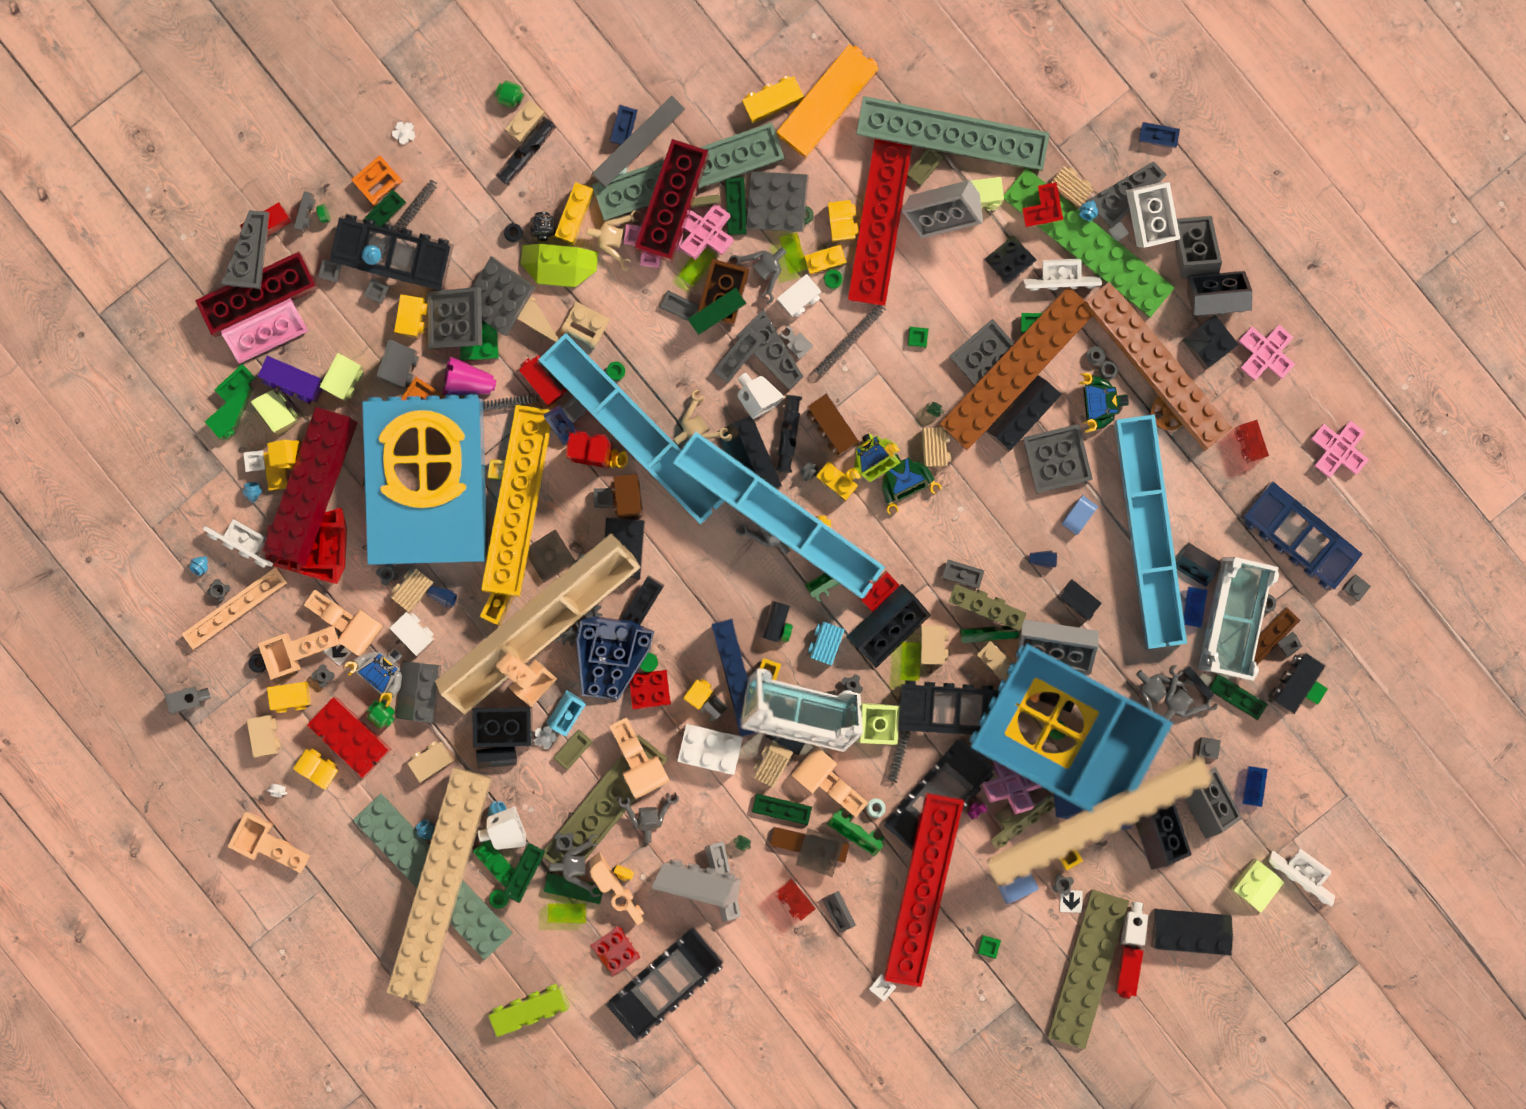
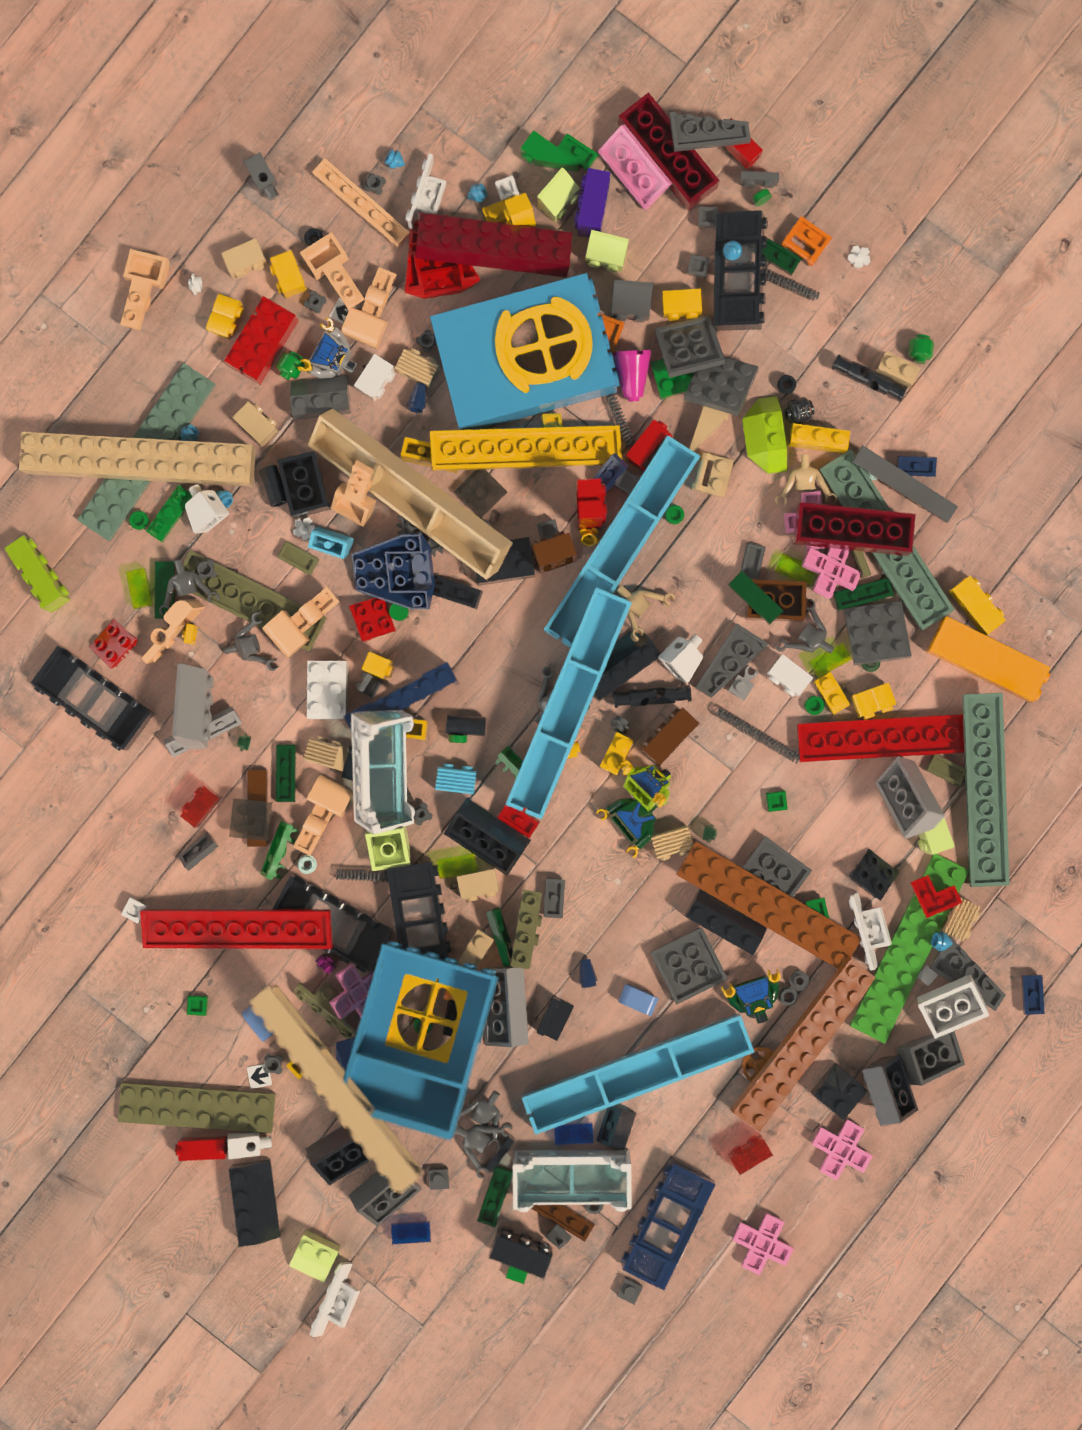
camera: 85 degrees right, 0 degrees up
(523, 872) = (167, 537): dark green tile -> none
(738, 355) = (717, 629): dark grey plate -> none

